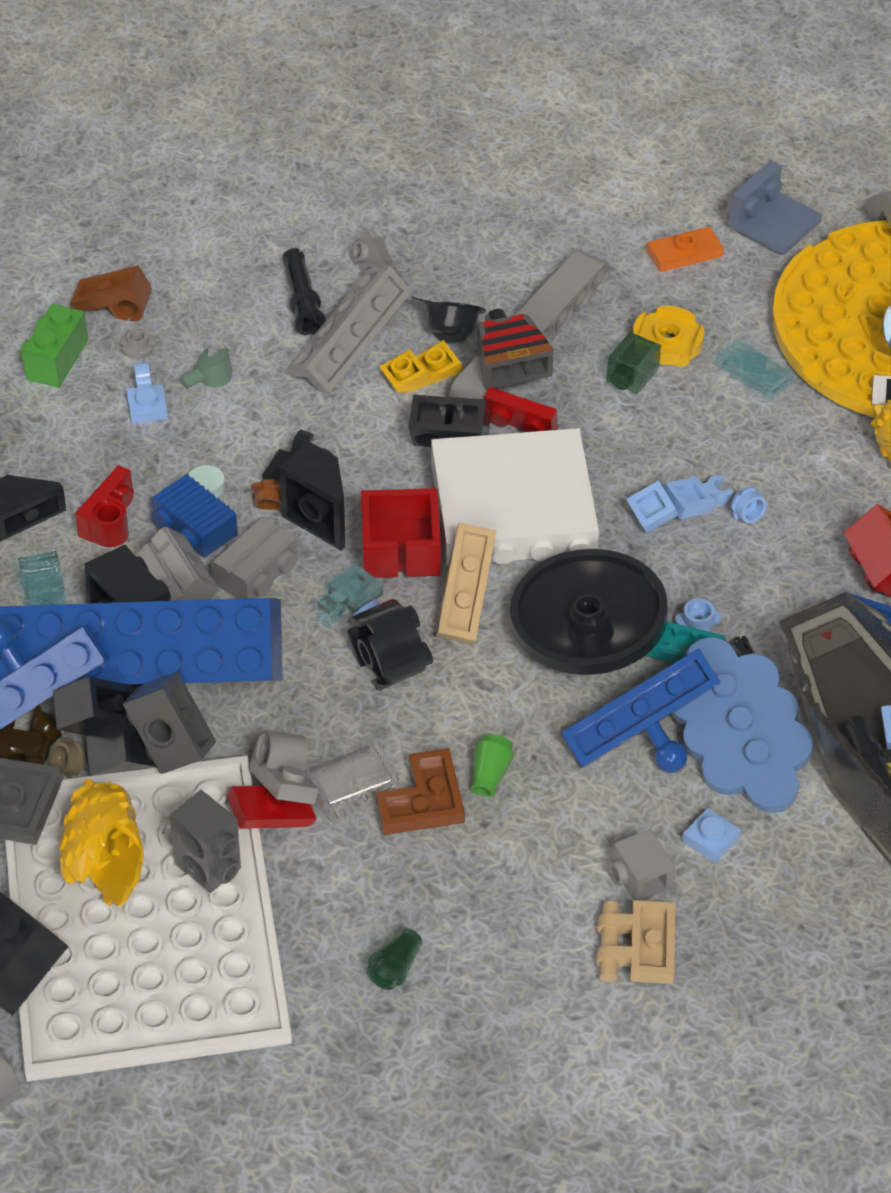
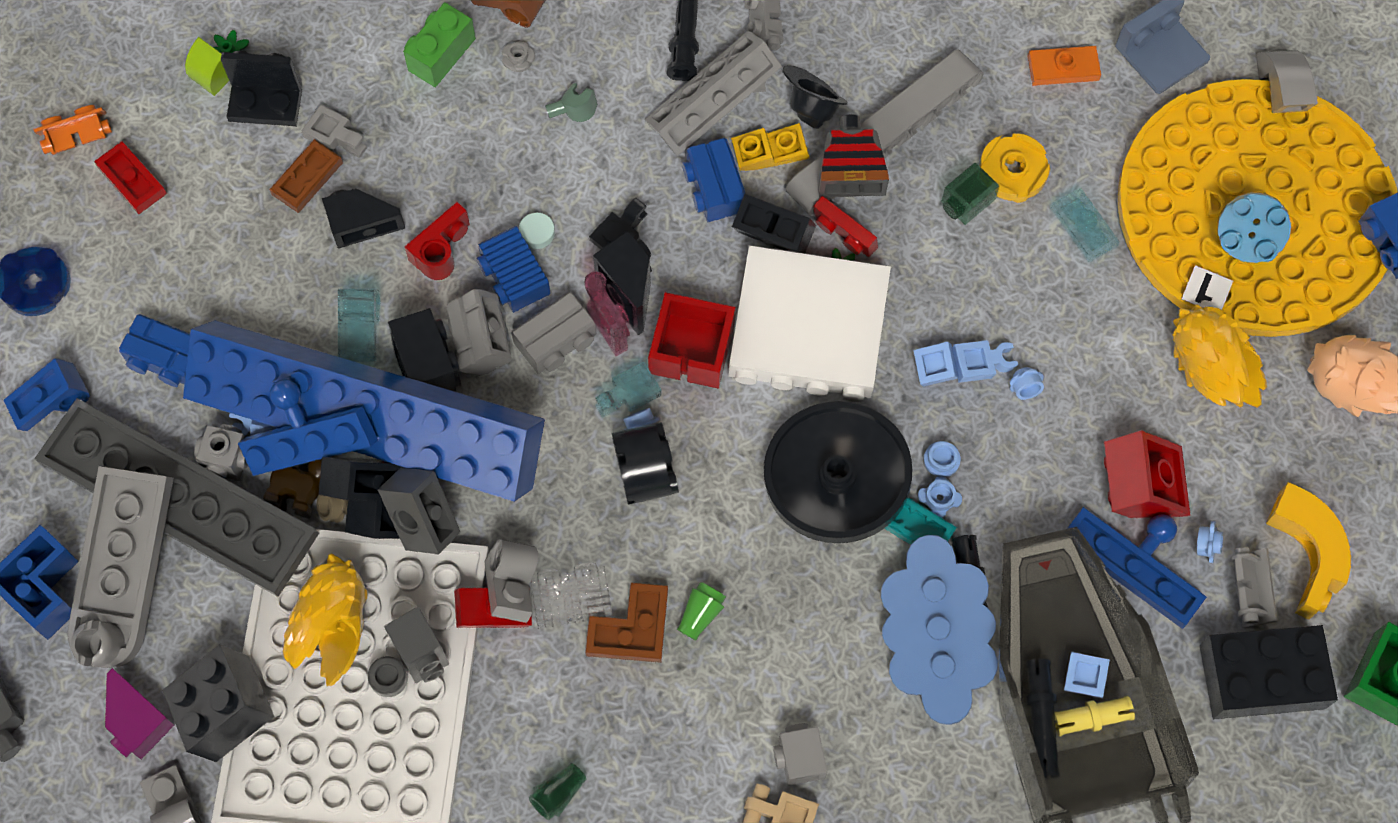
camera: 15 degrees right, 20 degrees up
(146, 401) = (509, 123): light blue plate -> none
(178, 890) = (387, 676): none -> dark grey tile
(267, 494) = (584, 260): dark orange plate -> none
(310, 525) = (608, 318): none -> clear pink plate
(375, 401) = (715, 179): none -> blue brick
(466, 583) = (734, 412): tan plate -> none
(641, 711) = (850, 597): blue plate -> none
(688, 584) = (942, 459): none -> light blue plate
(711, 835) = (876, 735): light blue plate -> none

